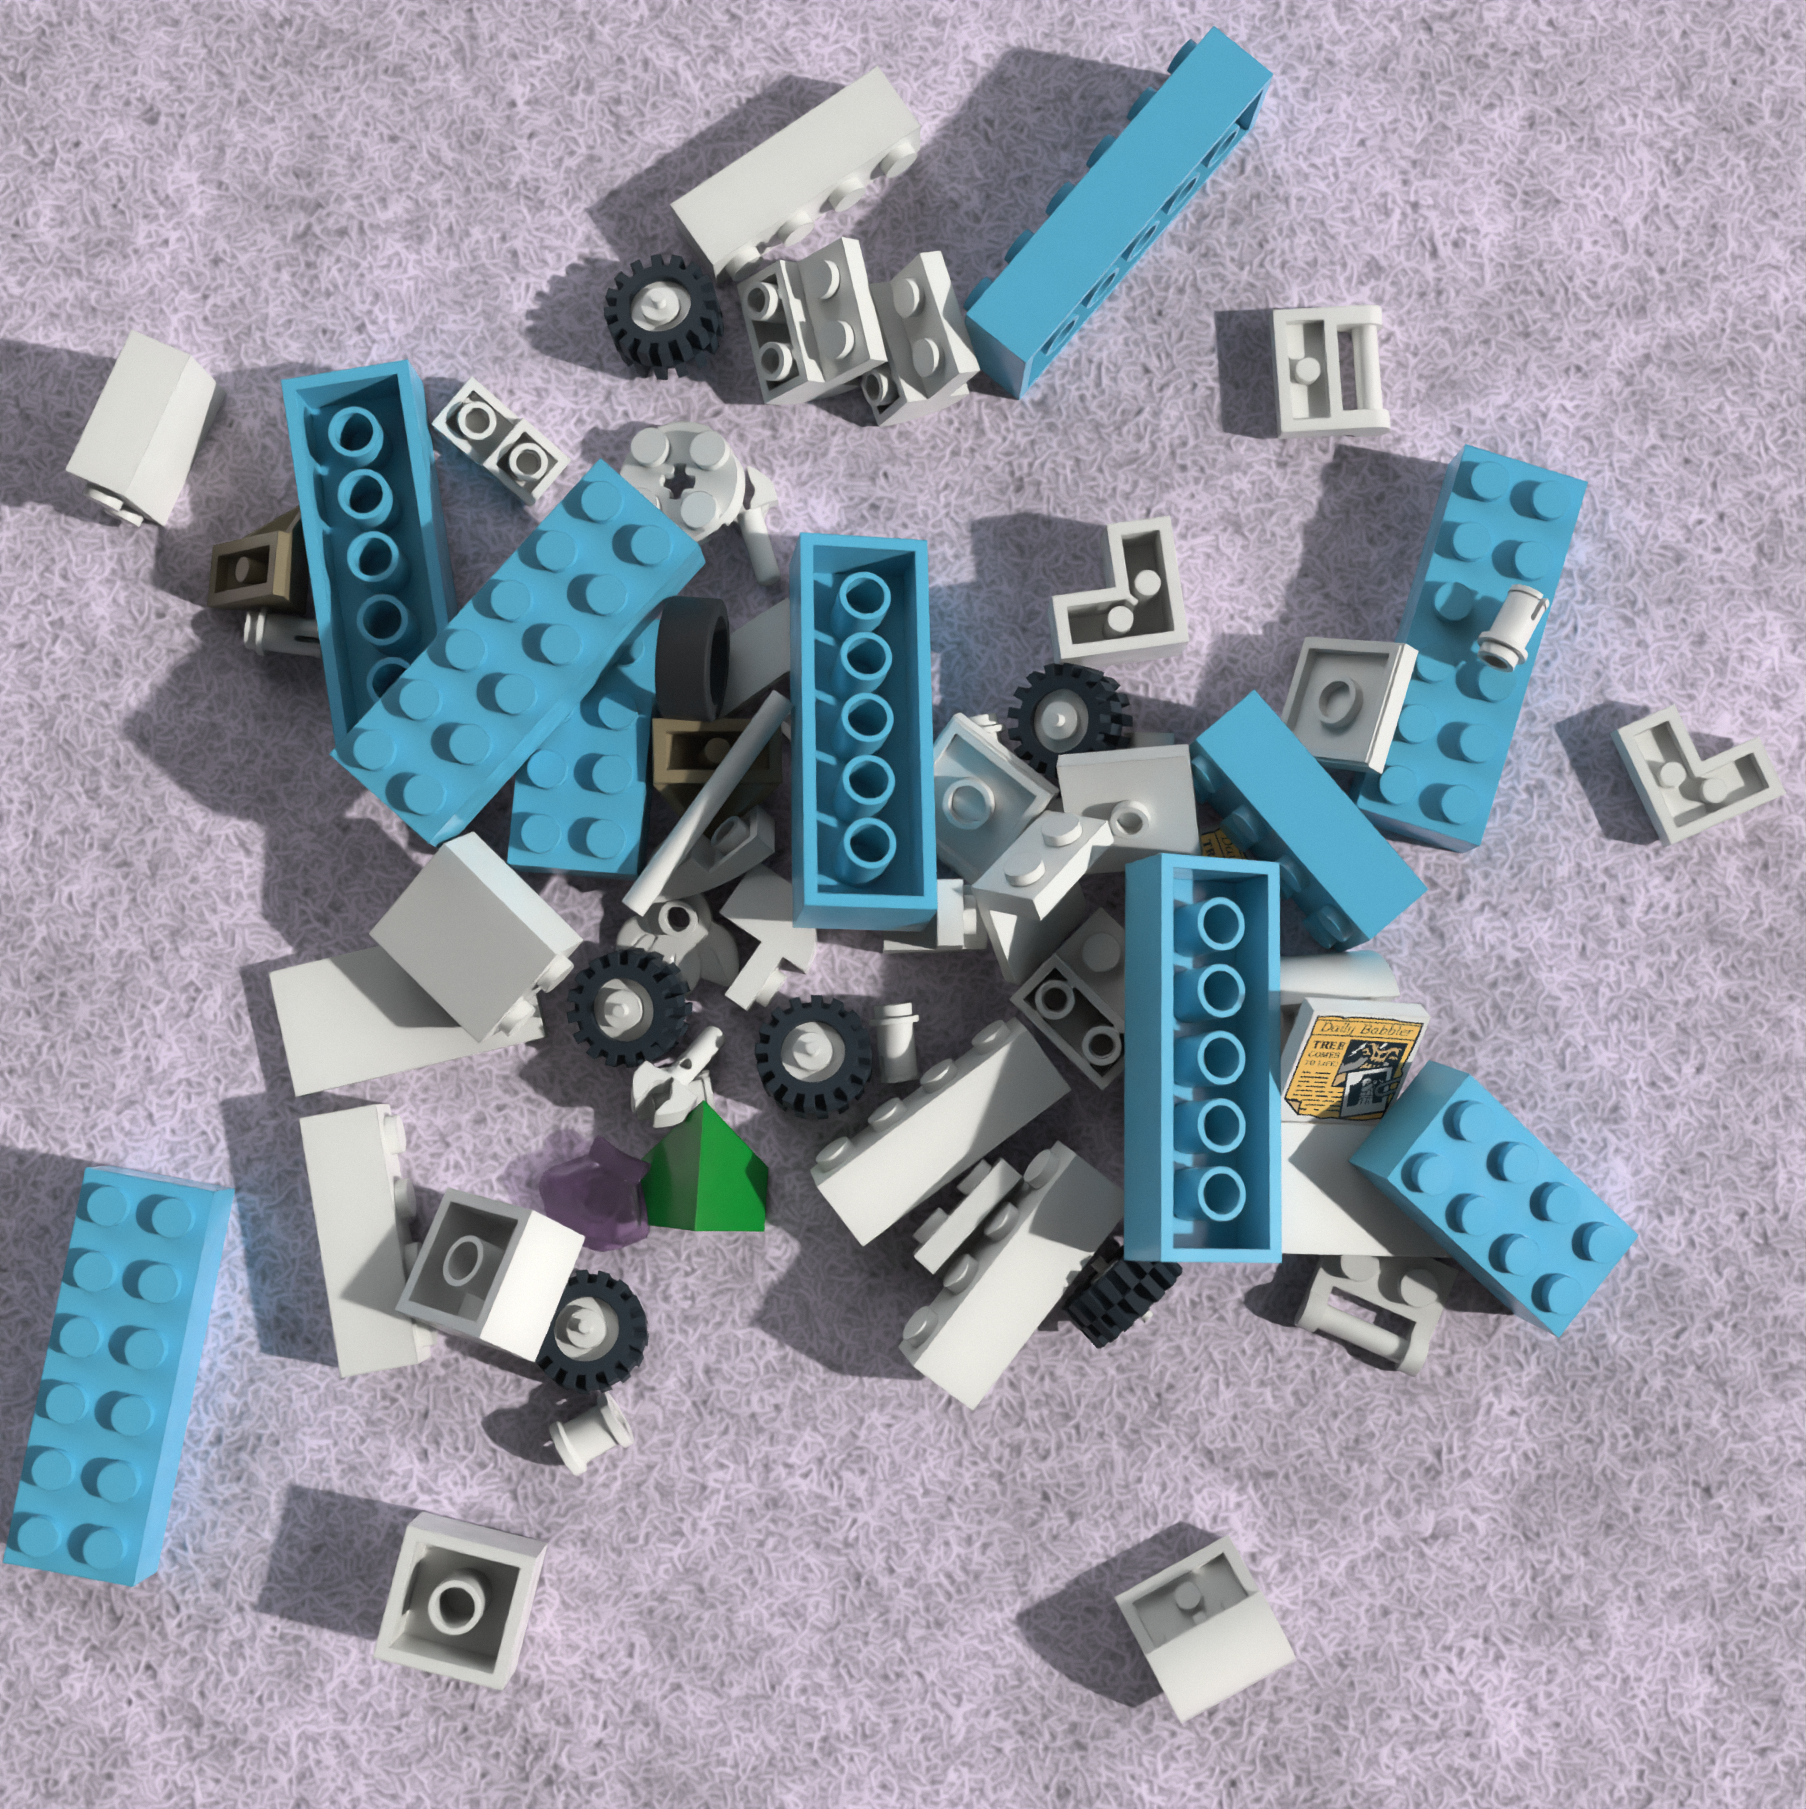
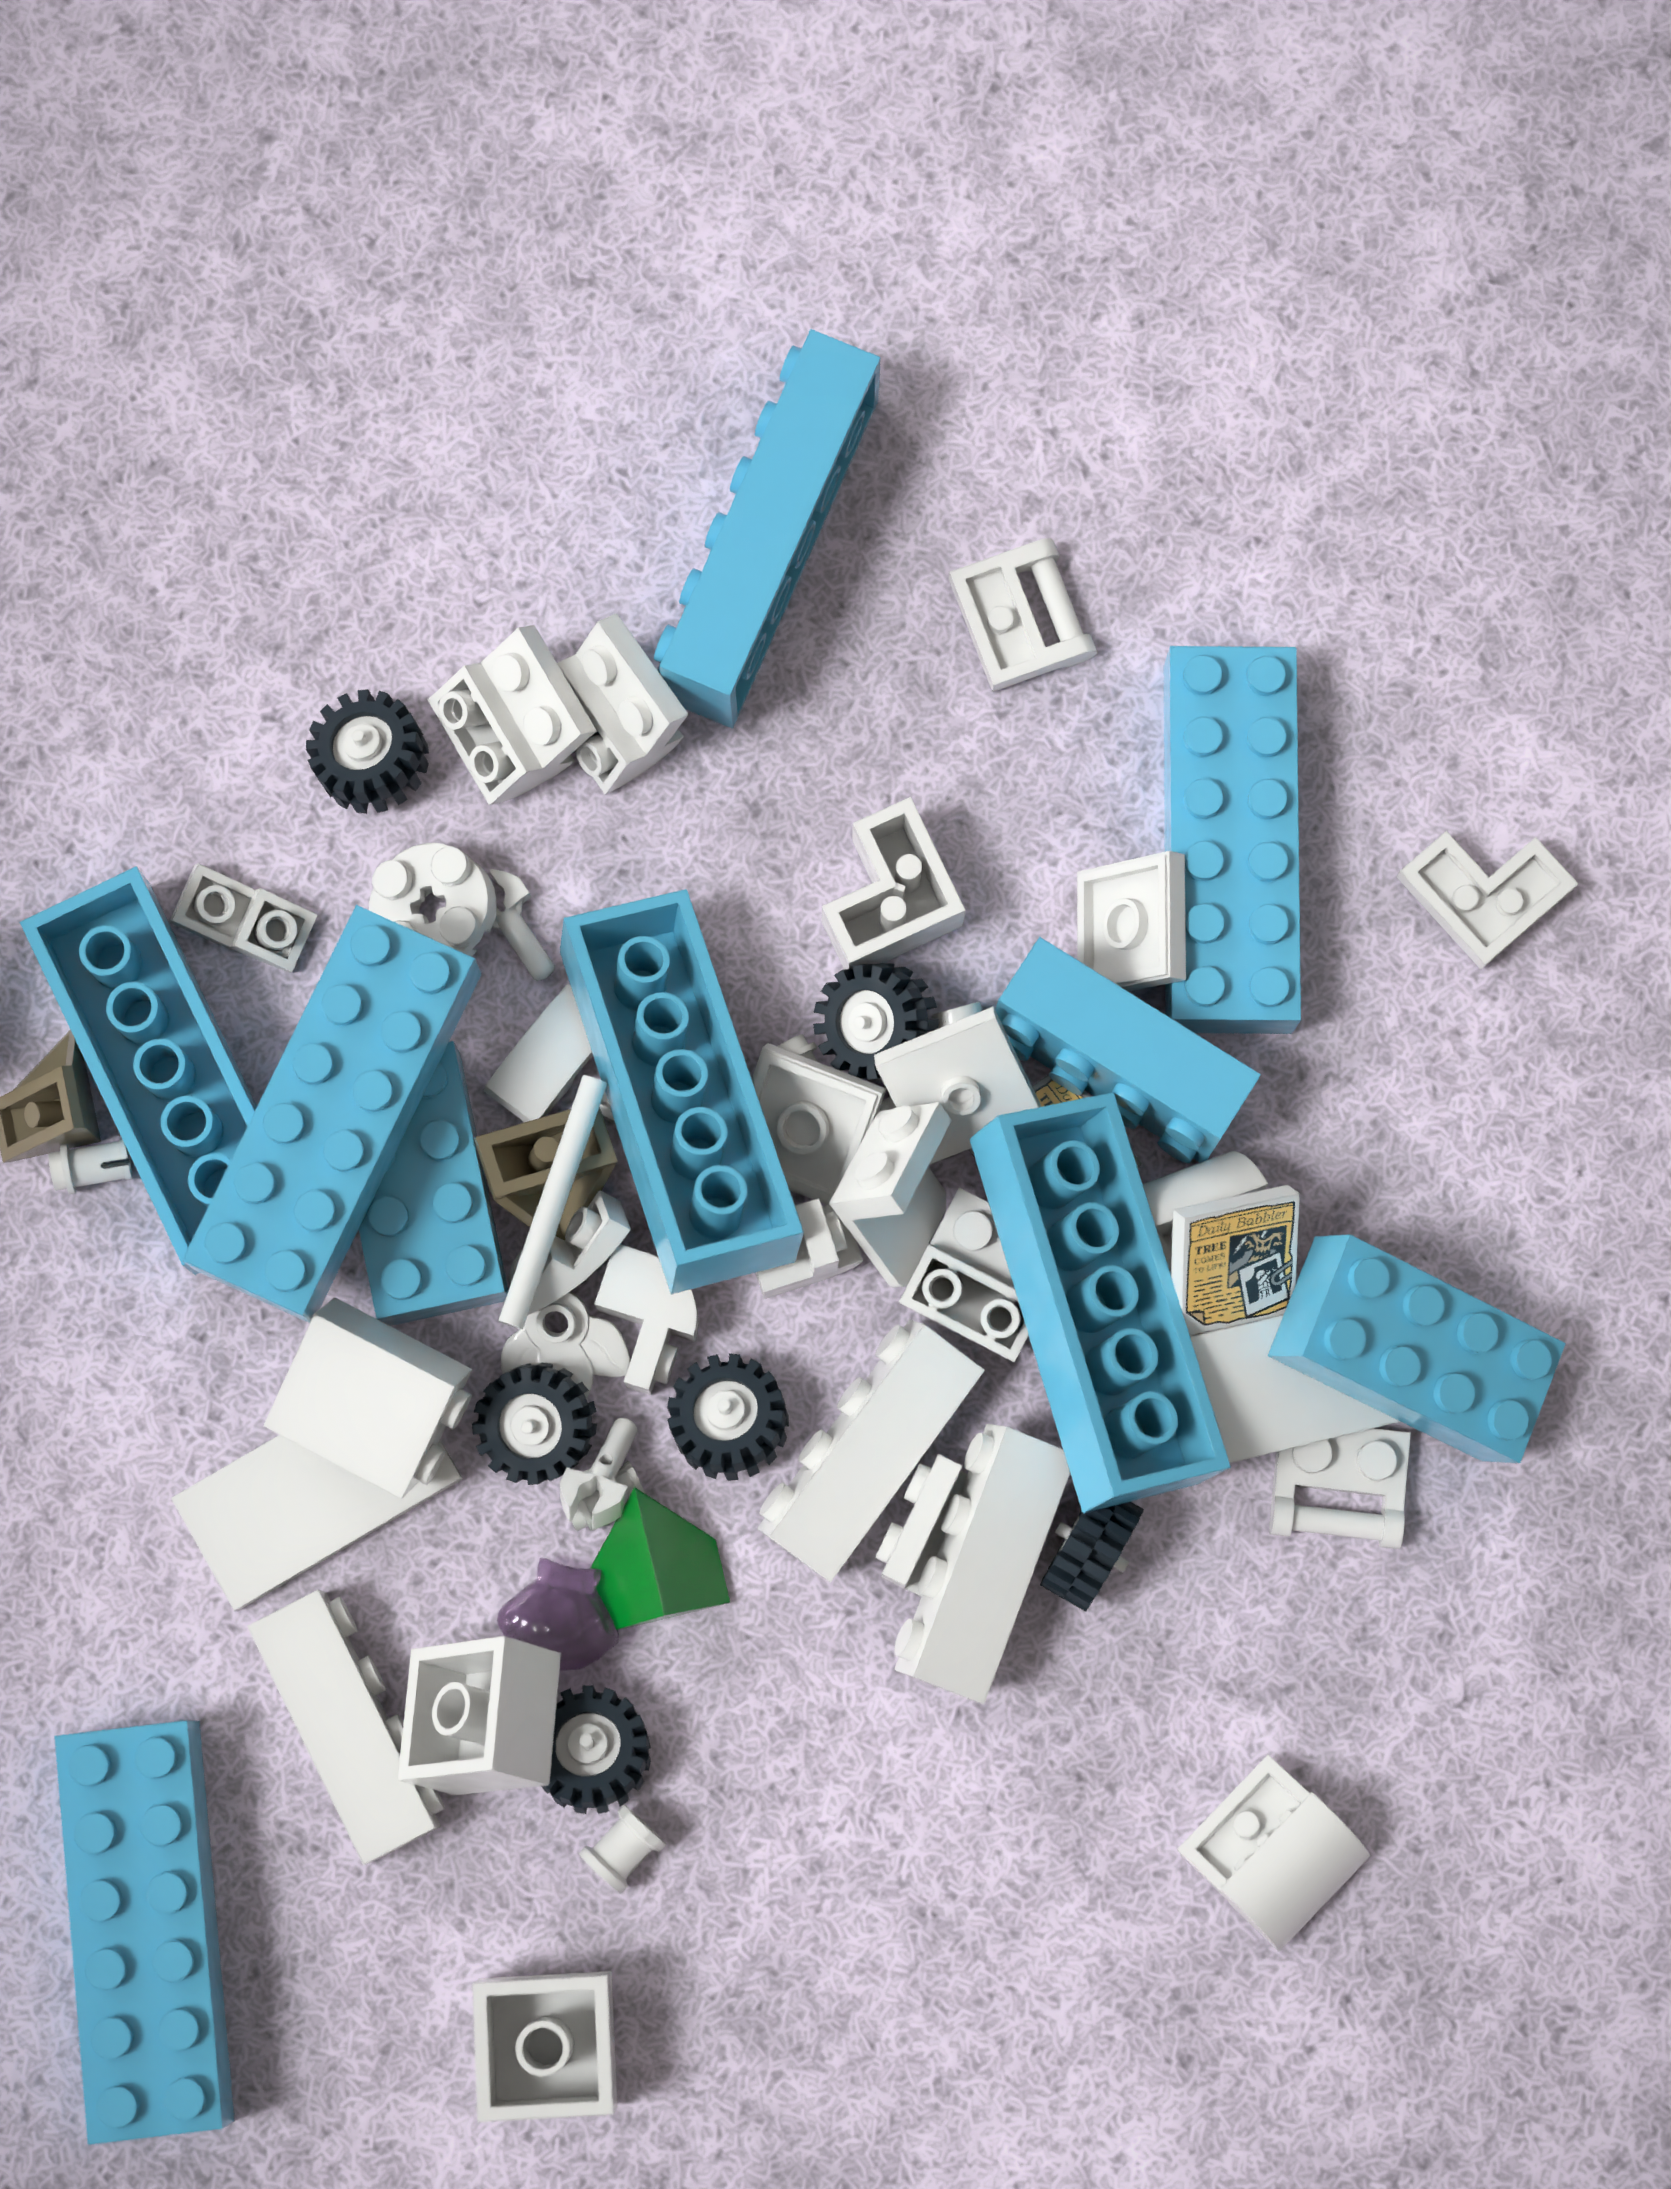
camera: 15 degrees left, 5 degrees down
(692, 658) = (497, 1068): black tyre -> none
(798, 177) = (455, 581): white brick -> none
(896, 1042) = (802, 1379): white pin -> none
(1506, 640) = (1265, 807): white pin -> none

